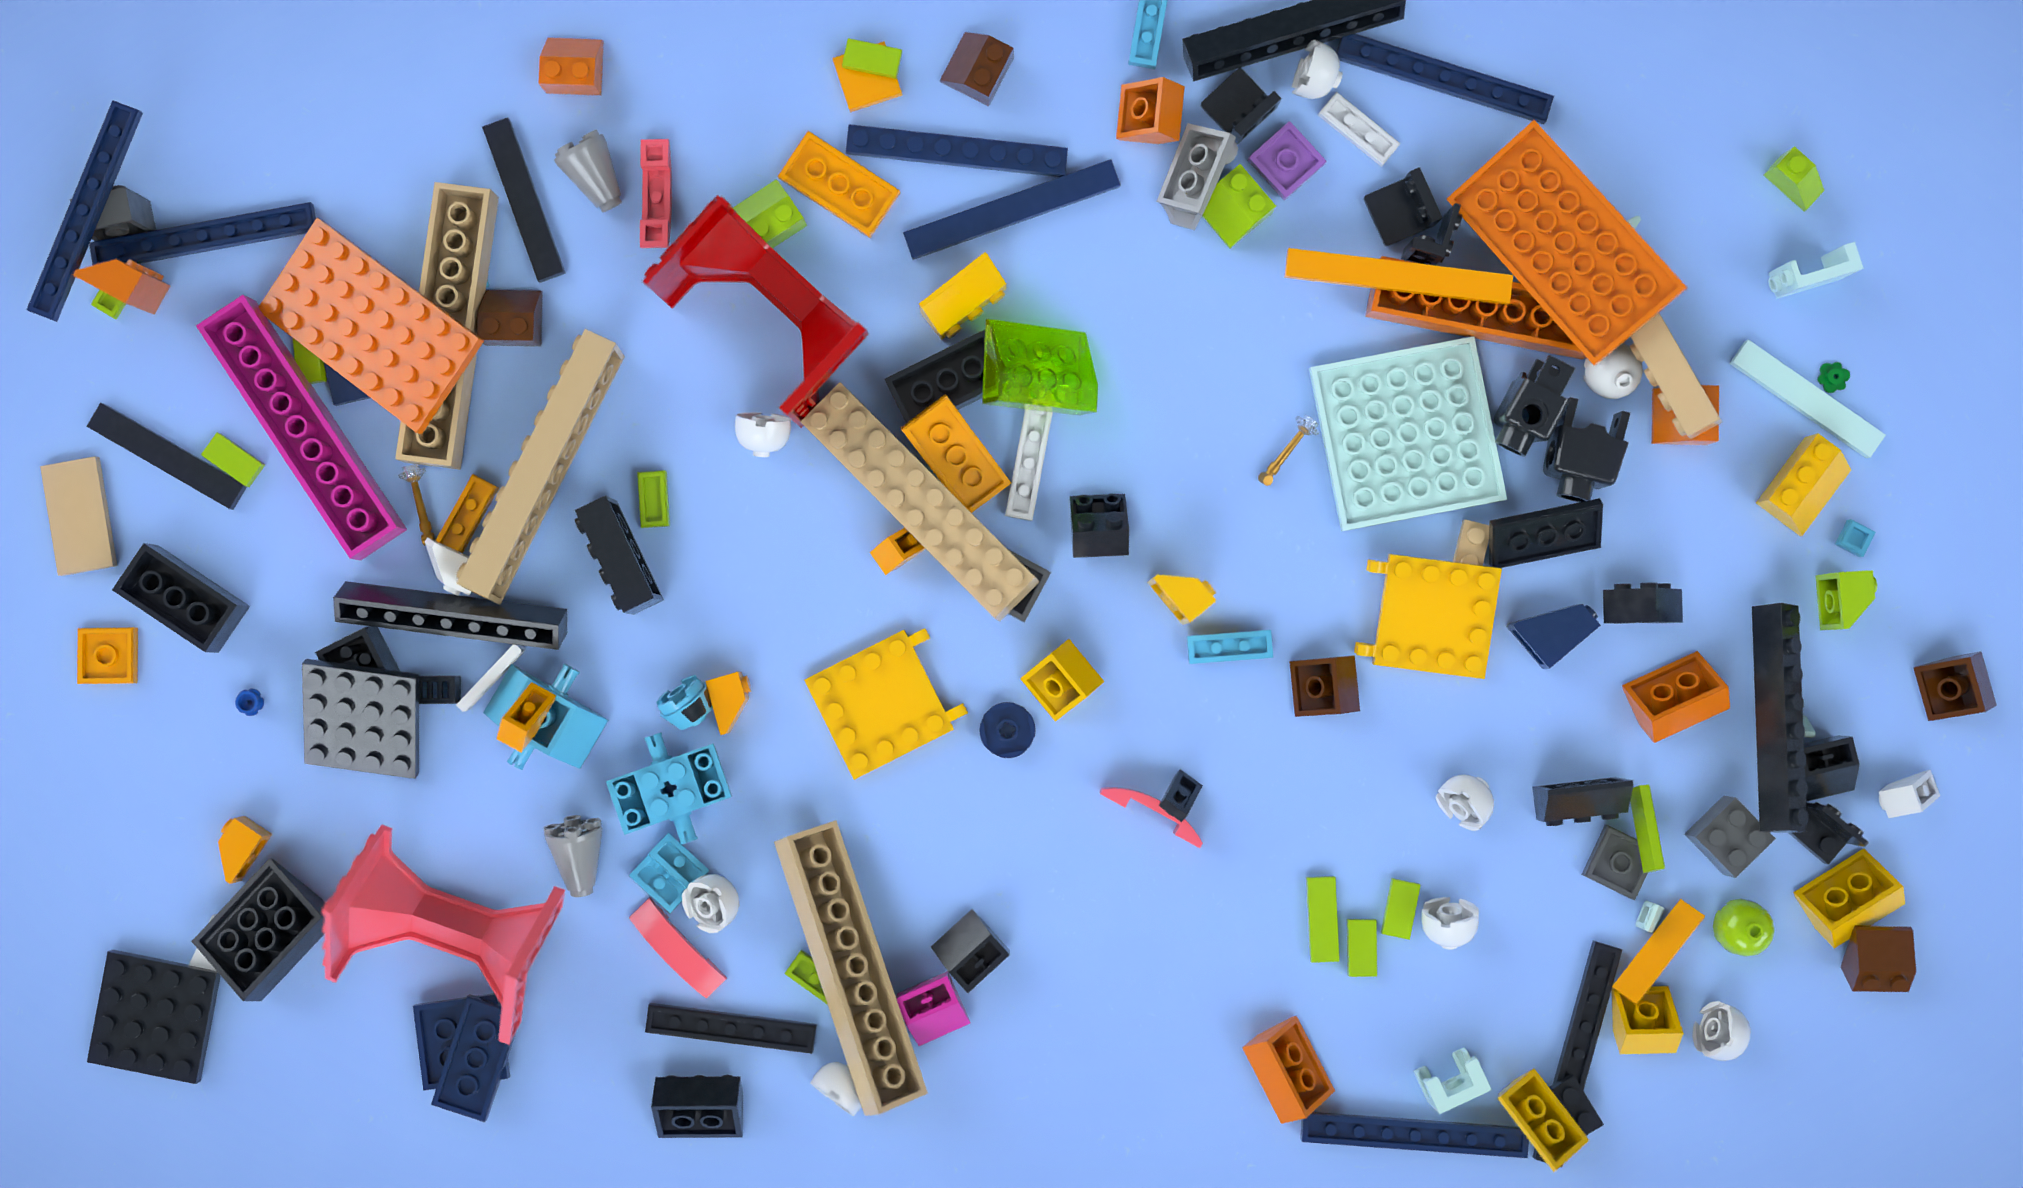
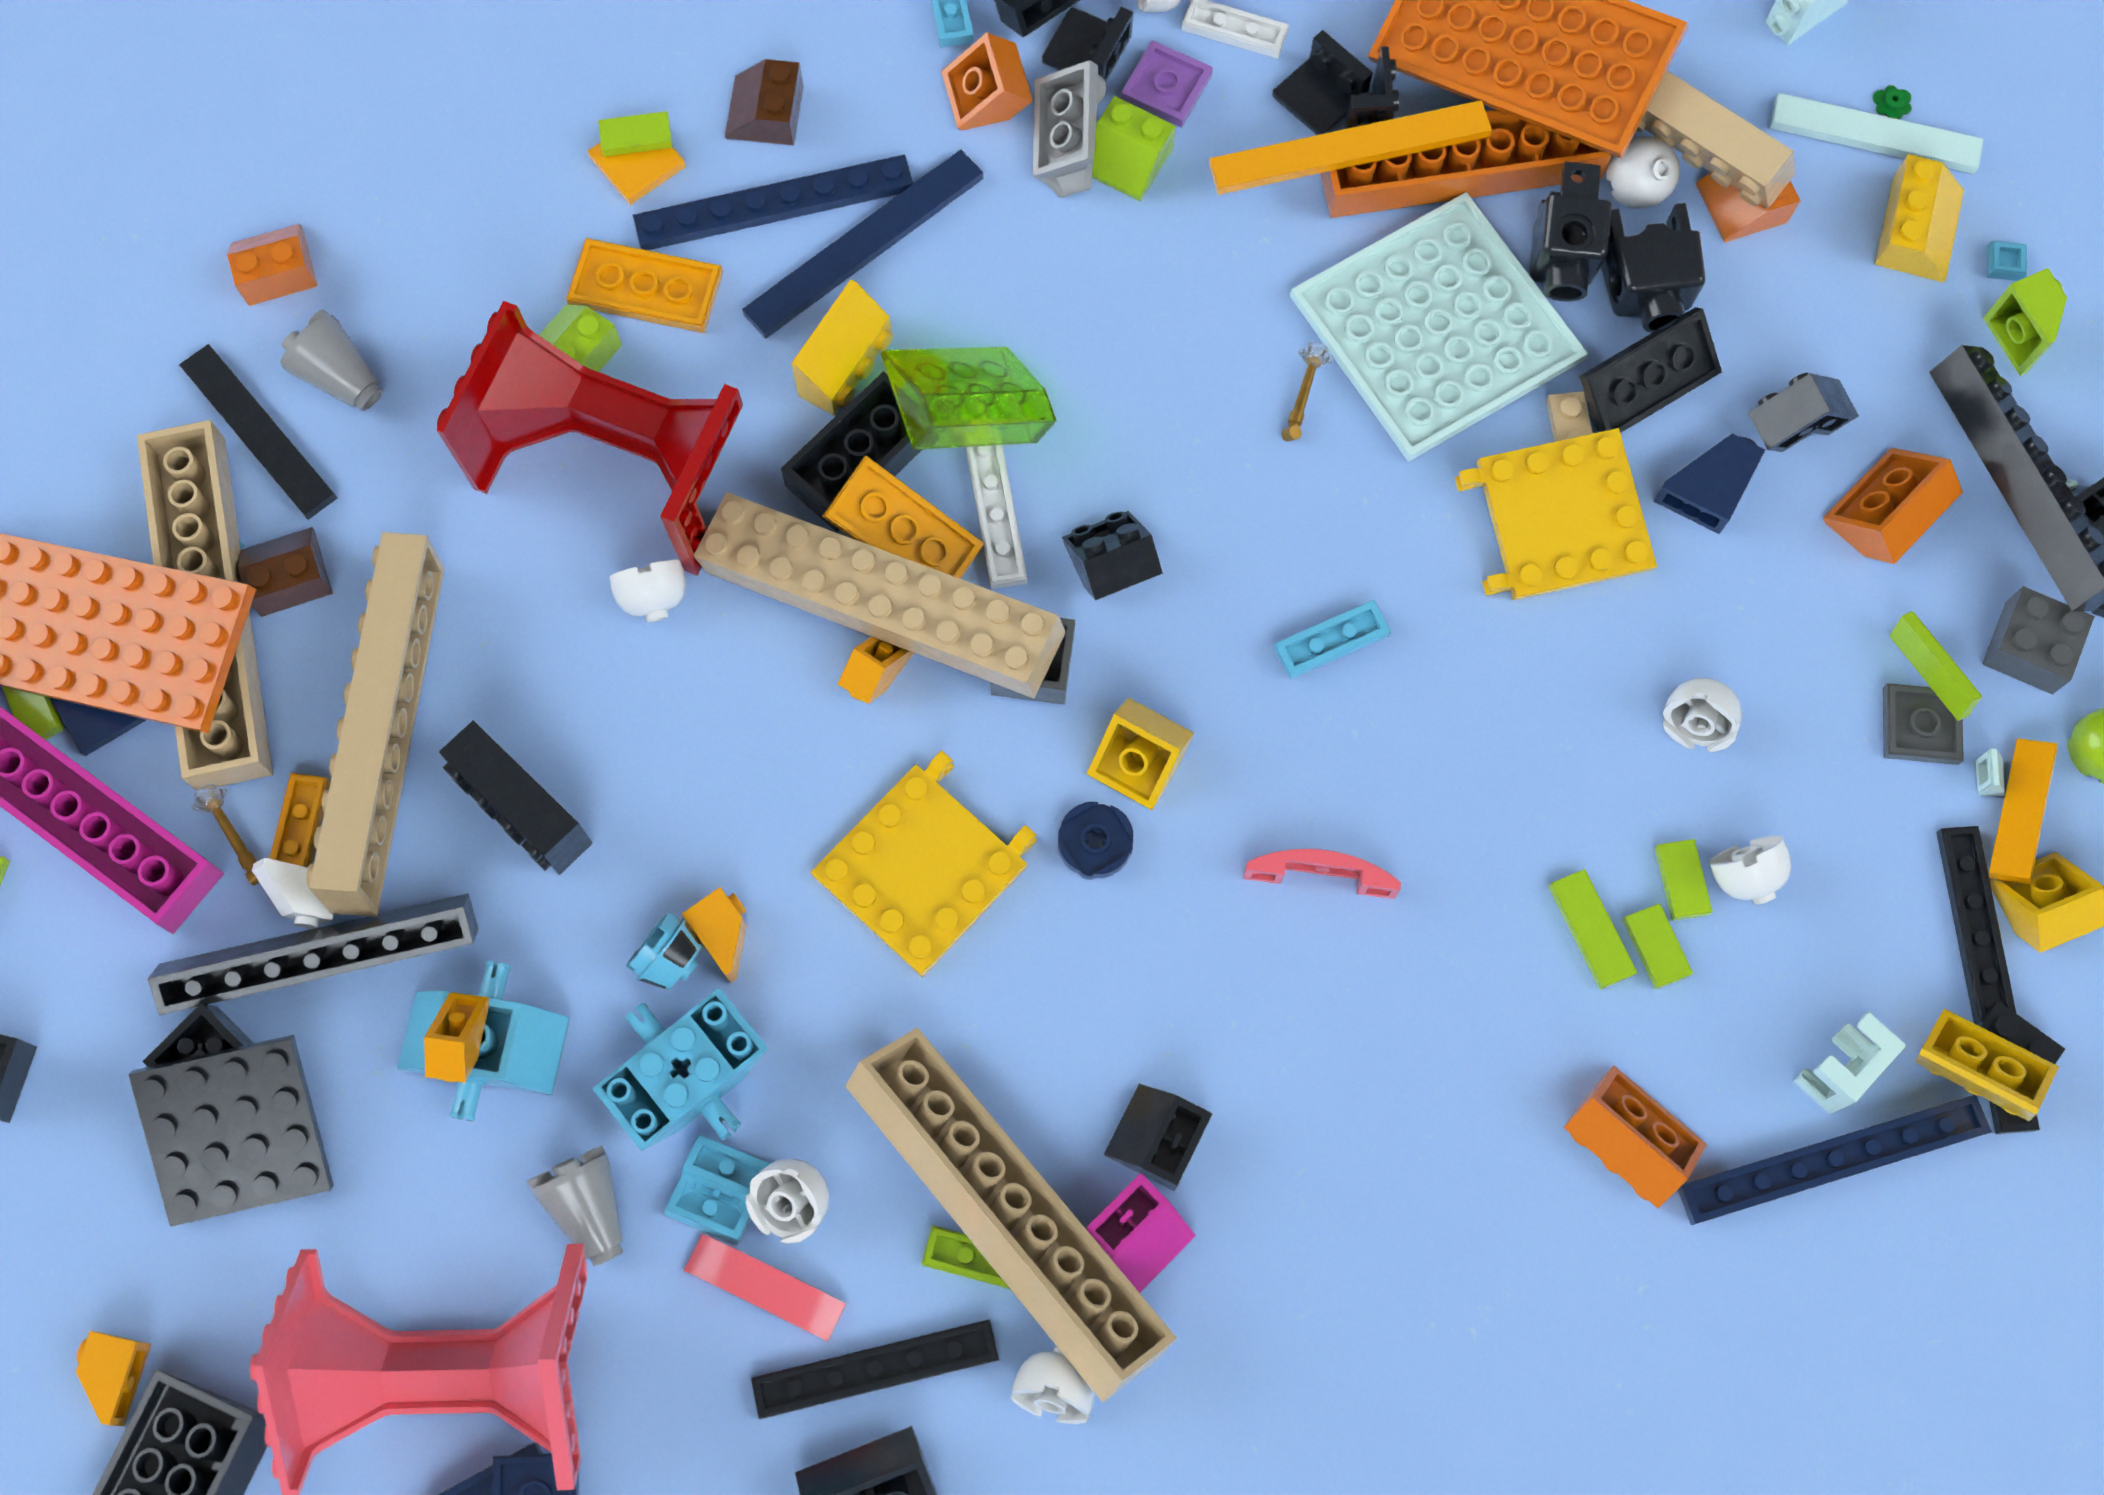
camera: 20 degrees left, 15 degrees down
(242, 702) = (61, 1167): blue plate -> none
(453, 689) = (350, 1060): black slope -> none
(490, 677) = (393, 1017): white tile -> none
(653, 499) = (537, 723): lime tile -> none
(656, 193) = (419, 362): coral slope -> none
(1180, 795) = (1348, 835): black plate -> none
(1183, 595) = (1247, 586): yellow slope -> none
(1324, 686) = (1468, 642): reddish brown slope -> none
(1582, 800) = (1842, 659): black slope -> none

